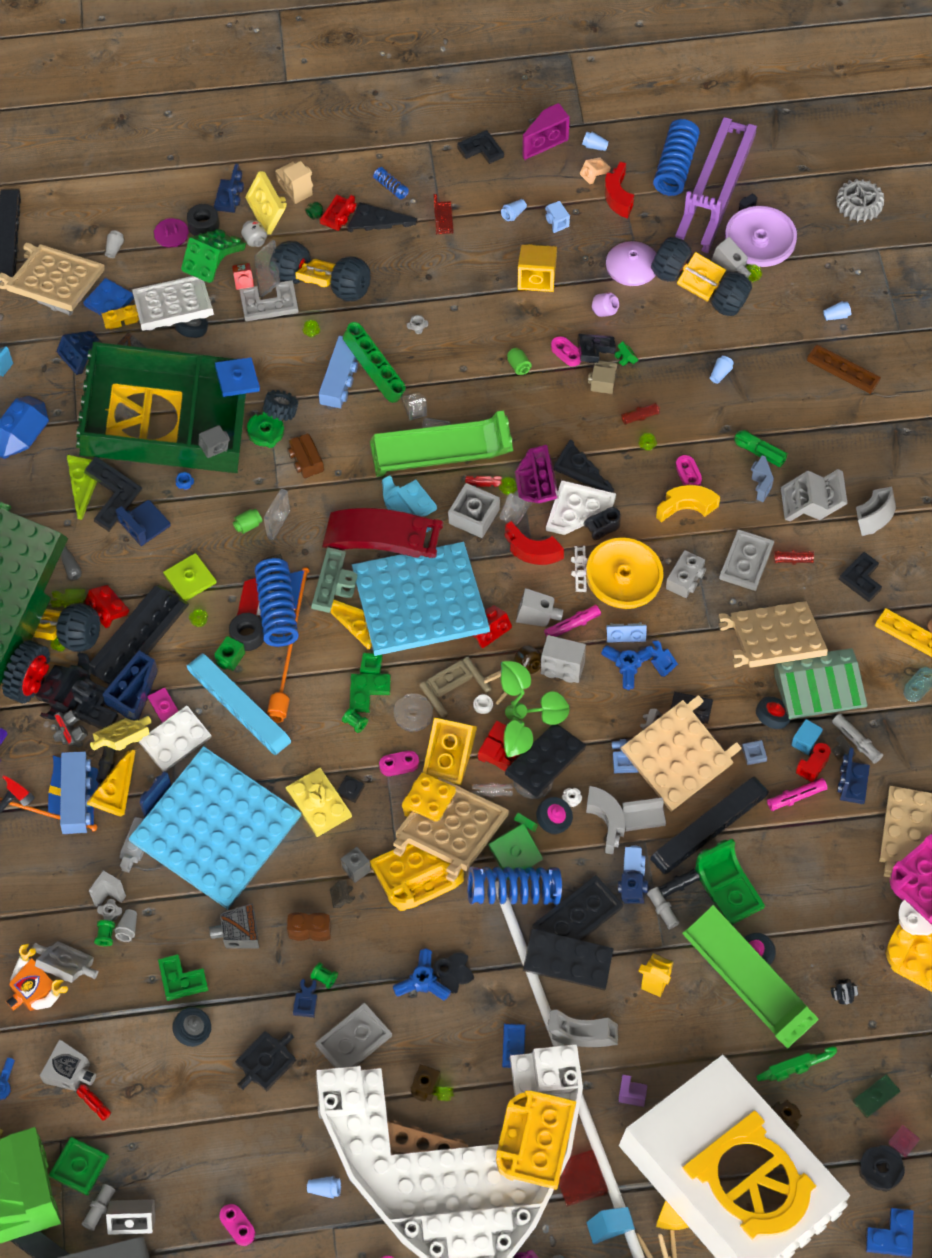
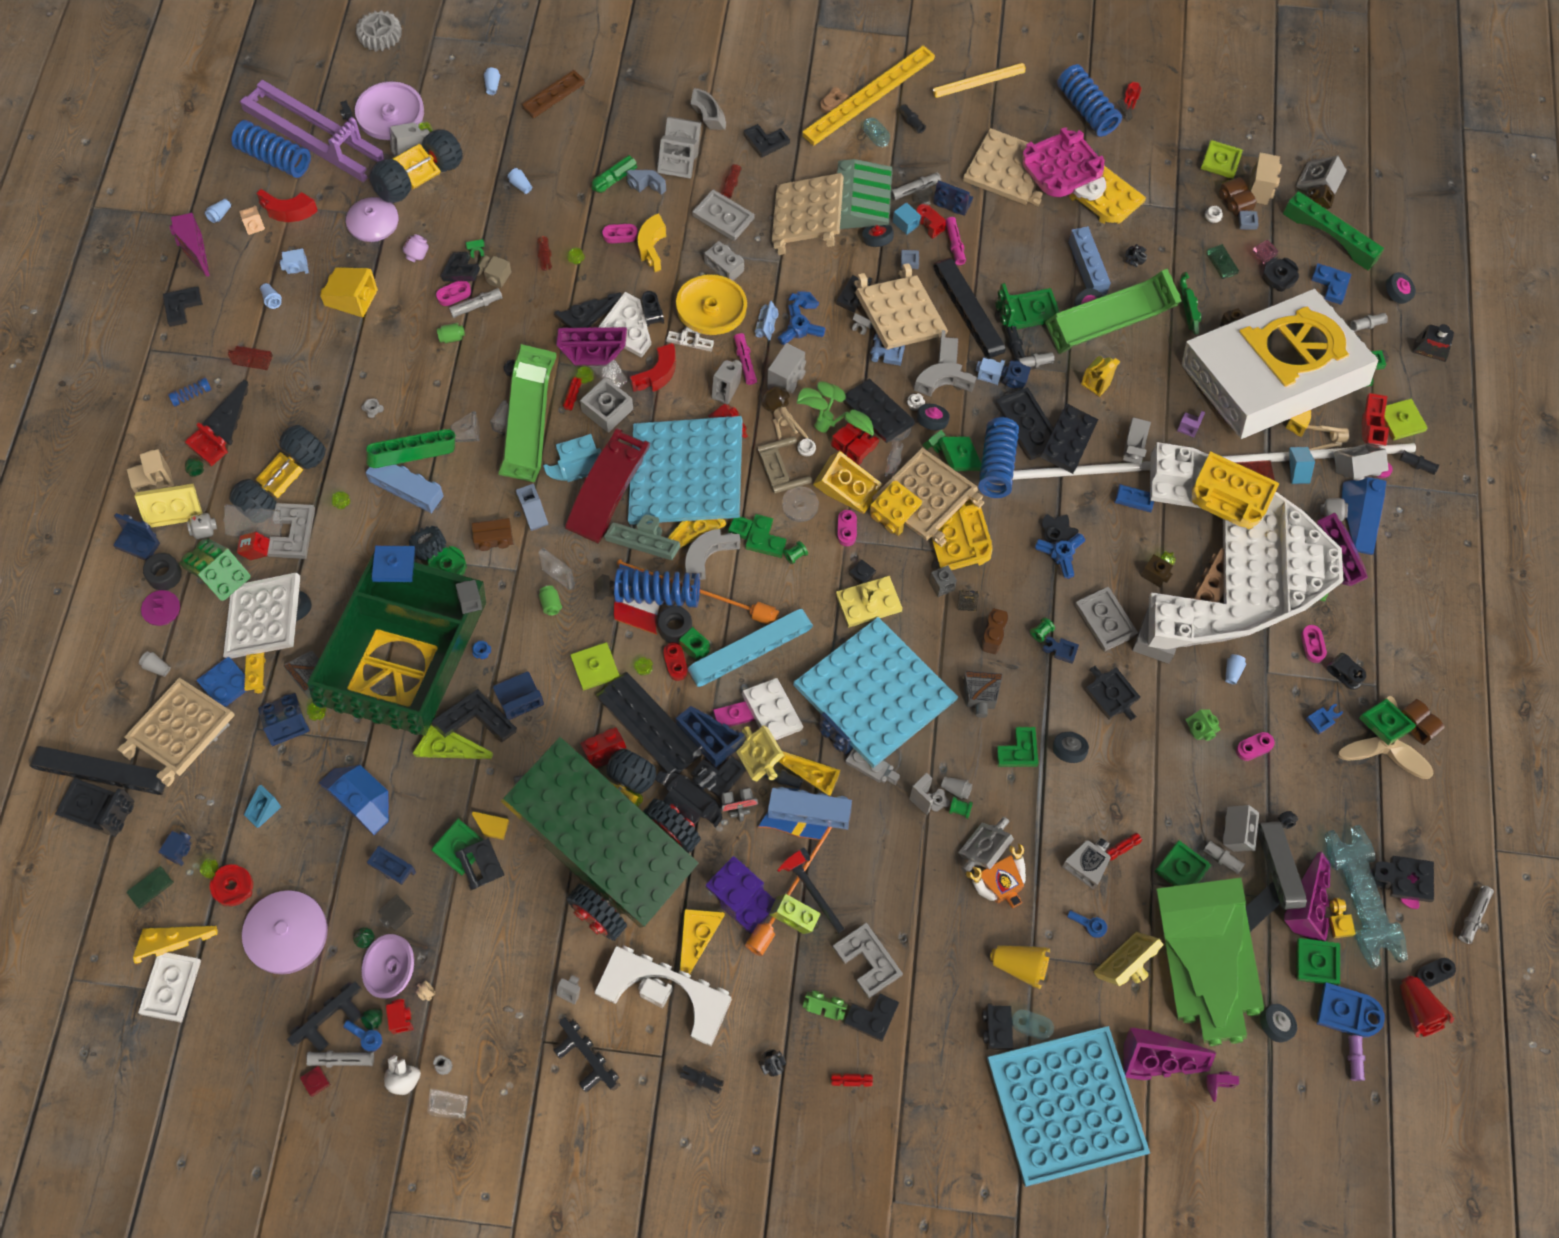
camera: 80 degrees left, 5 degrees up
(210, 643) = (675, 660): none -> red plate
(245, 1159) = (1203, 725): none -> bright green brick
(335, 634) = (705, 546): none -> light grey arch
(342, 478) = (532, 507): none -> sand blue slope
(567, 377) = (479, 301): none -> light grey pin
(816, 940) = (1089, 260): none -> medium blue brick

